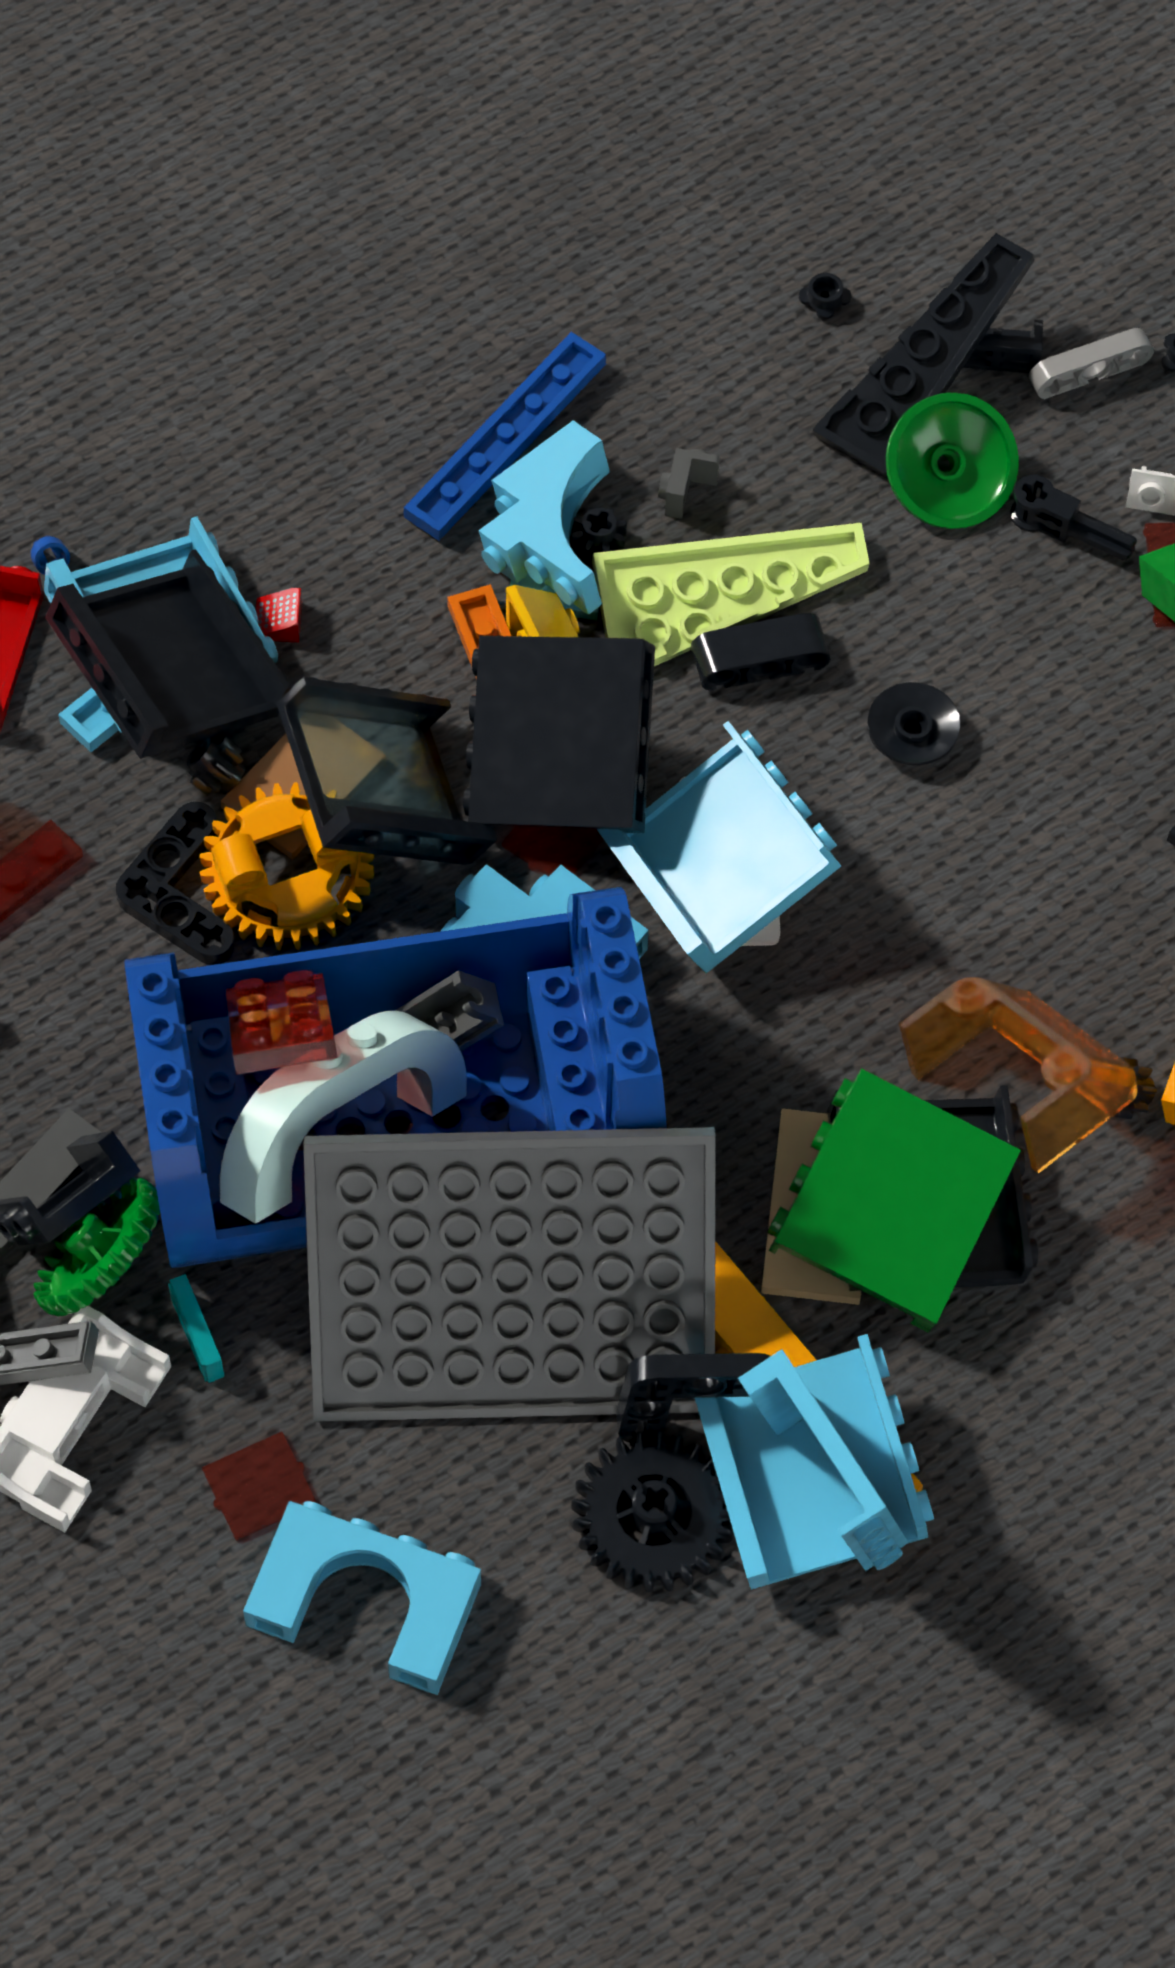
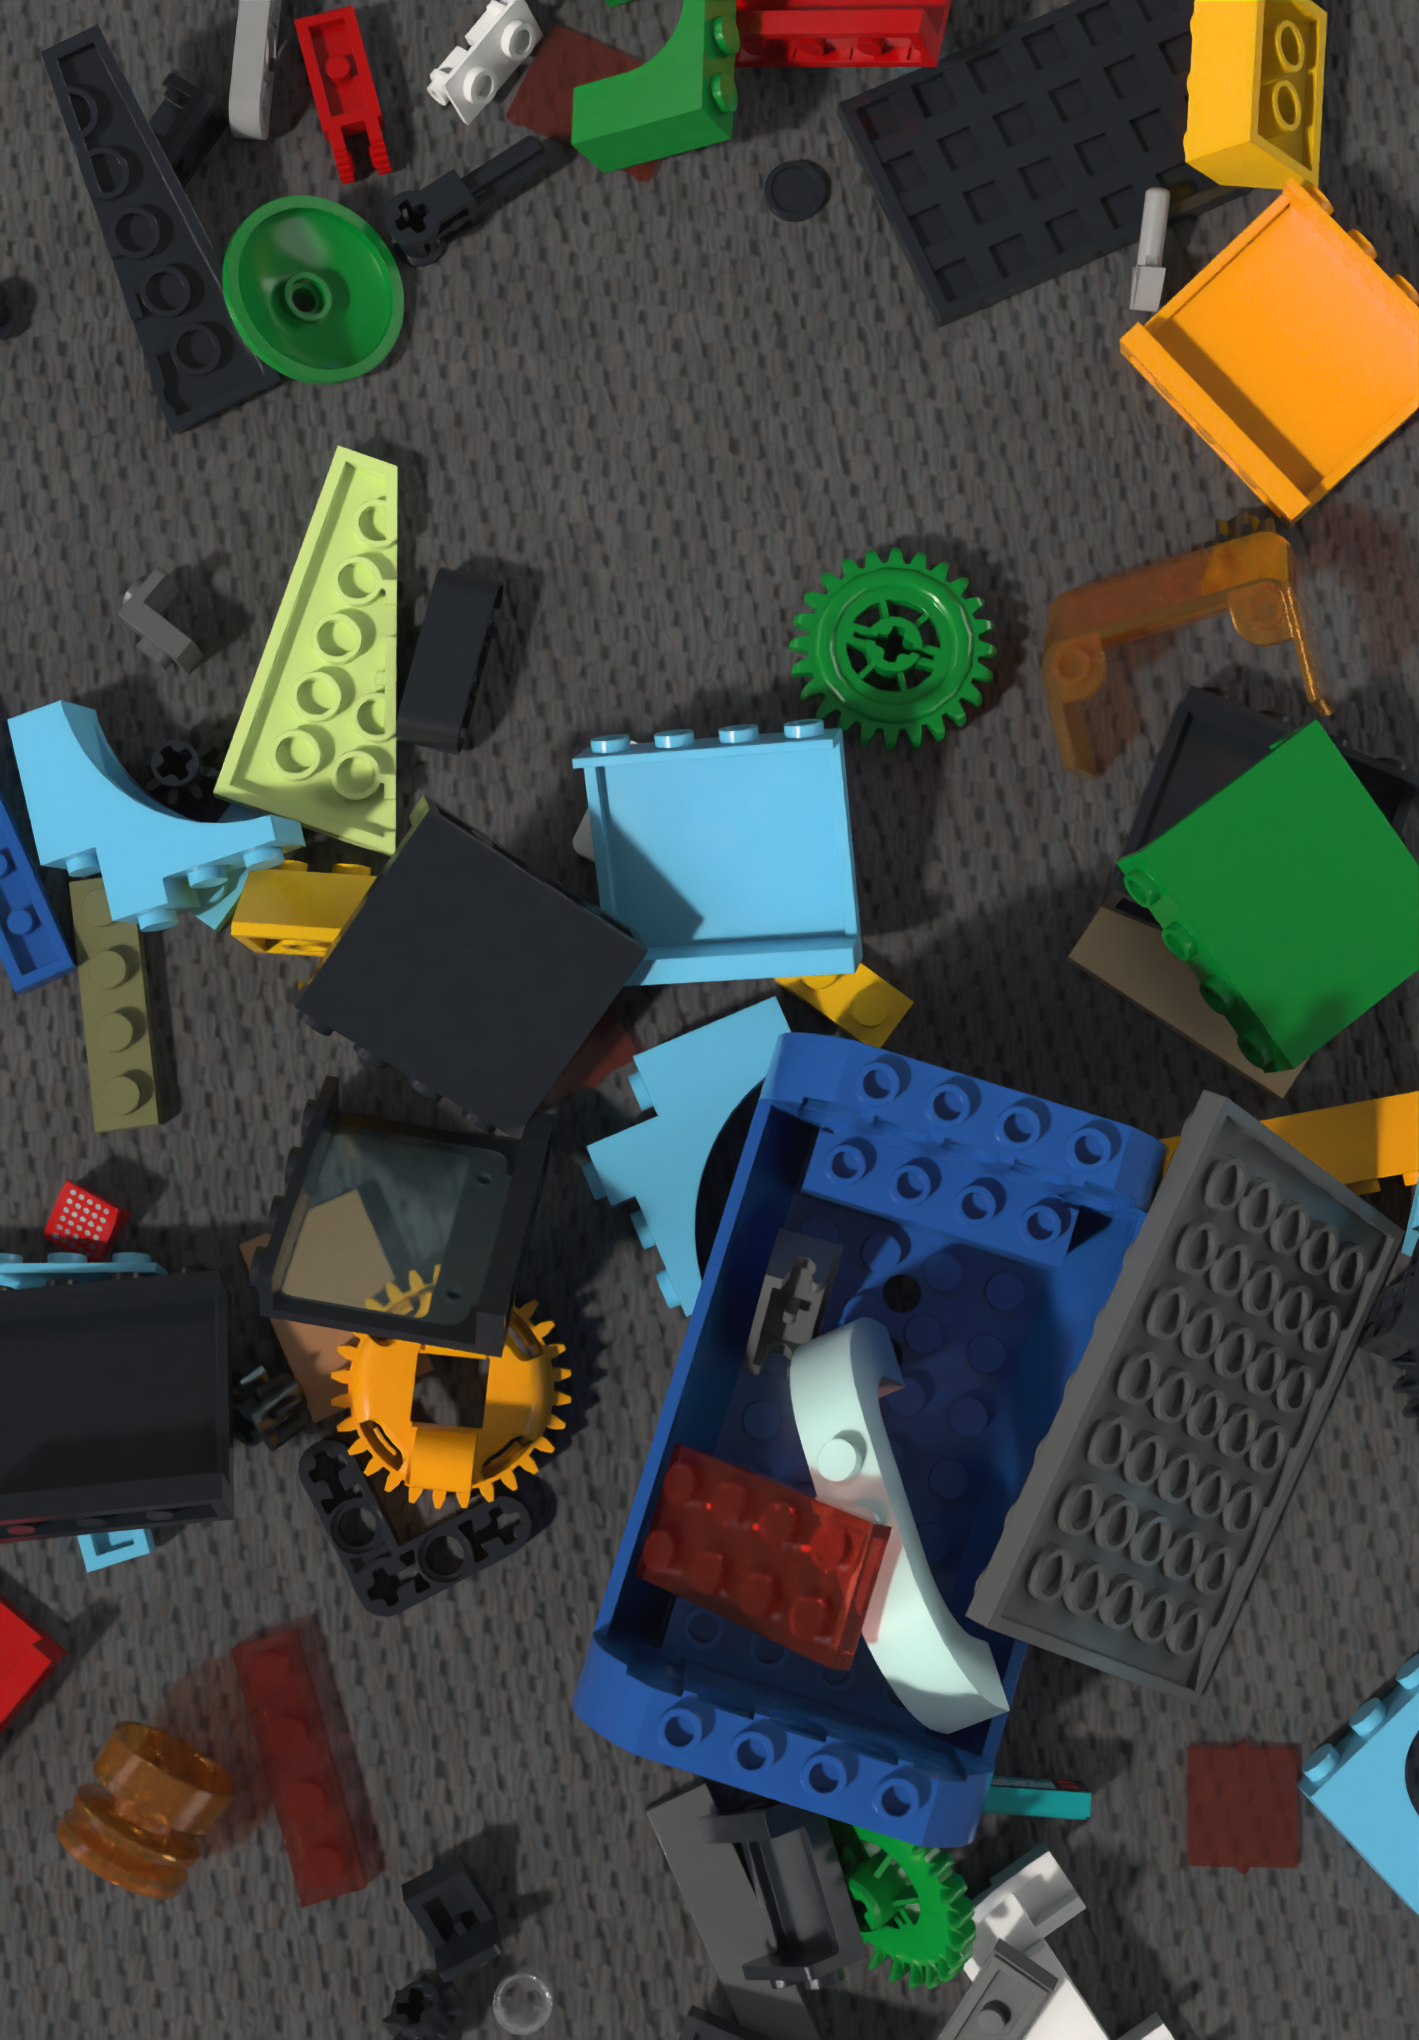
camera: 60 degrees left, 20 degrees up
(417, 575) = (115, 1013): none -> olive plate
(477, 615) = (240, 979): orange plate -> none
(676, 989) = (854, 1002): none -> yellow plate
(912, 932) = (952, 664): none -> green gear
(919, 707) = (637, 504): black dish -> none
(1099, 423) = (342, 86): none -> red hinge

